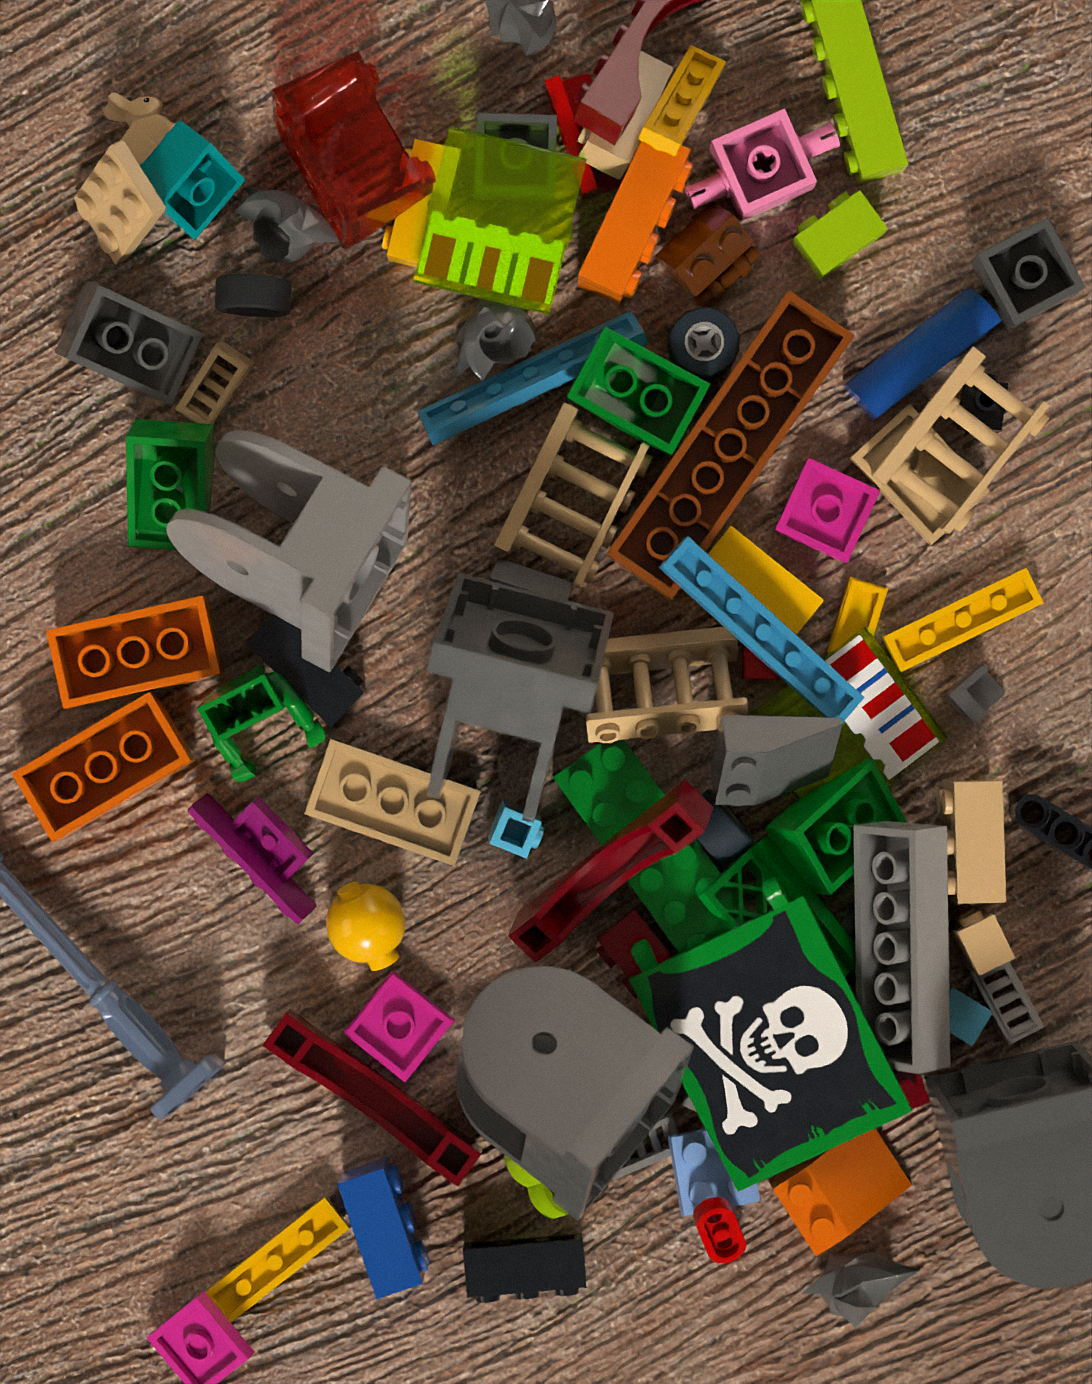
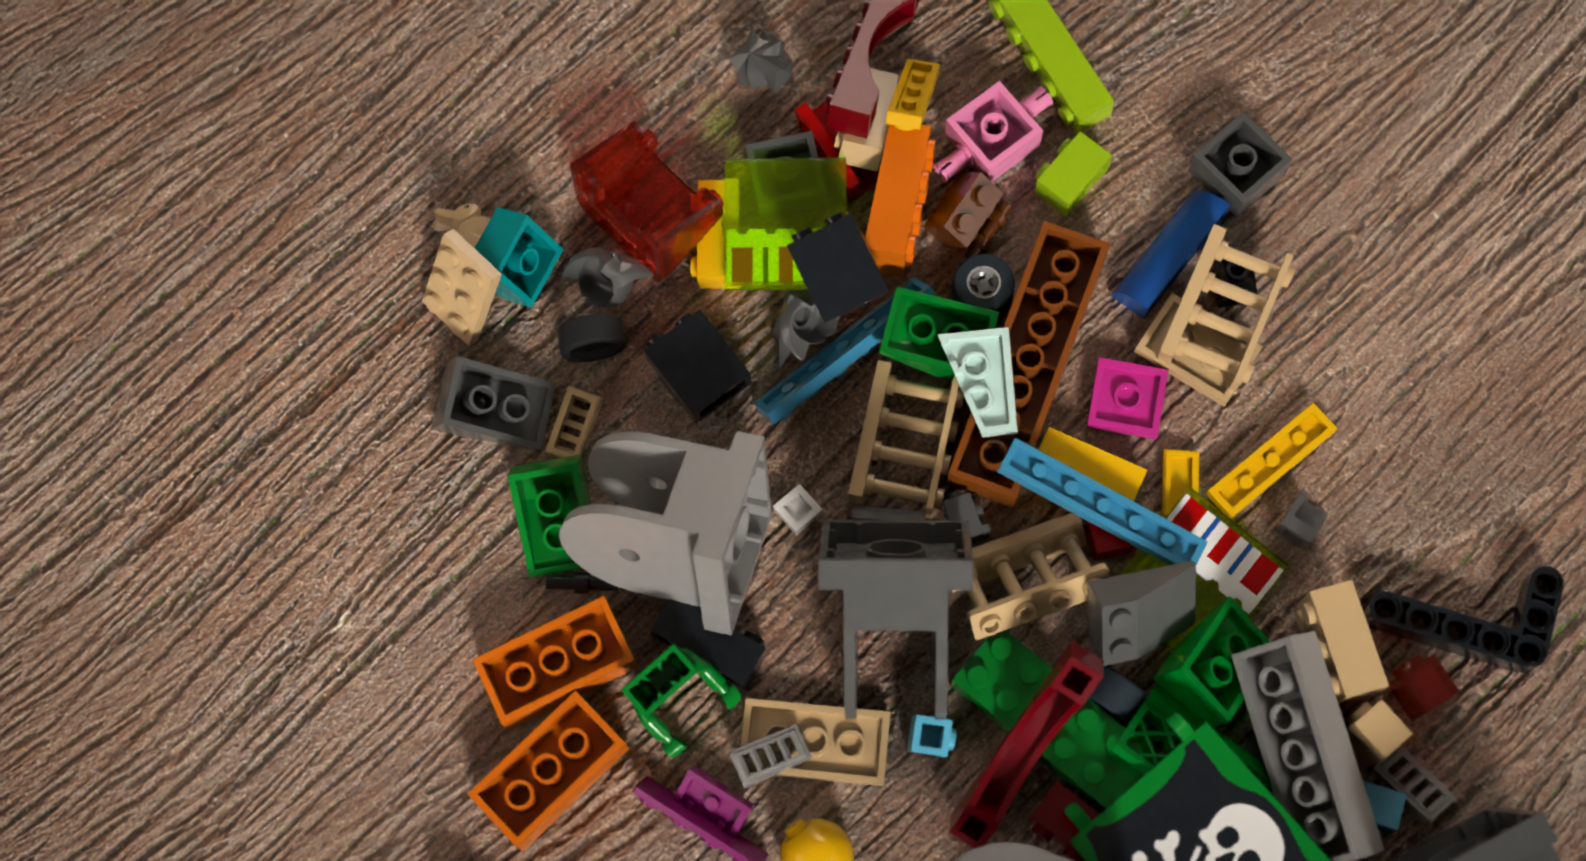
camera: 10 degrees left, 15 degrees down
(178, 566) = (581, 583): none -> black bar
(307, 813) = (764, 743): none -> light grey slope
(363, 356) = (697, 365): none -> black brick
(436, 545) = (797, 509): none -> white plate
(543, 295) = (837, 266): none -> black brick
(615, 596) = (962, 508): none -> dark grey brick
(675, 456) = (985, 376): none -> light aqua wing
(1044, 905) = (1421, 686): none -> clear red brick

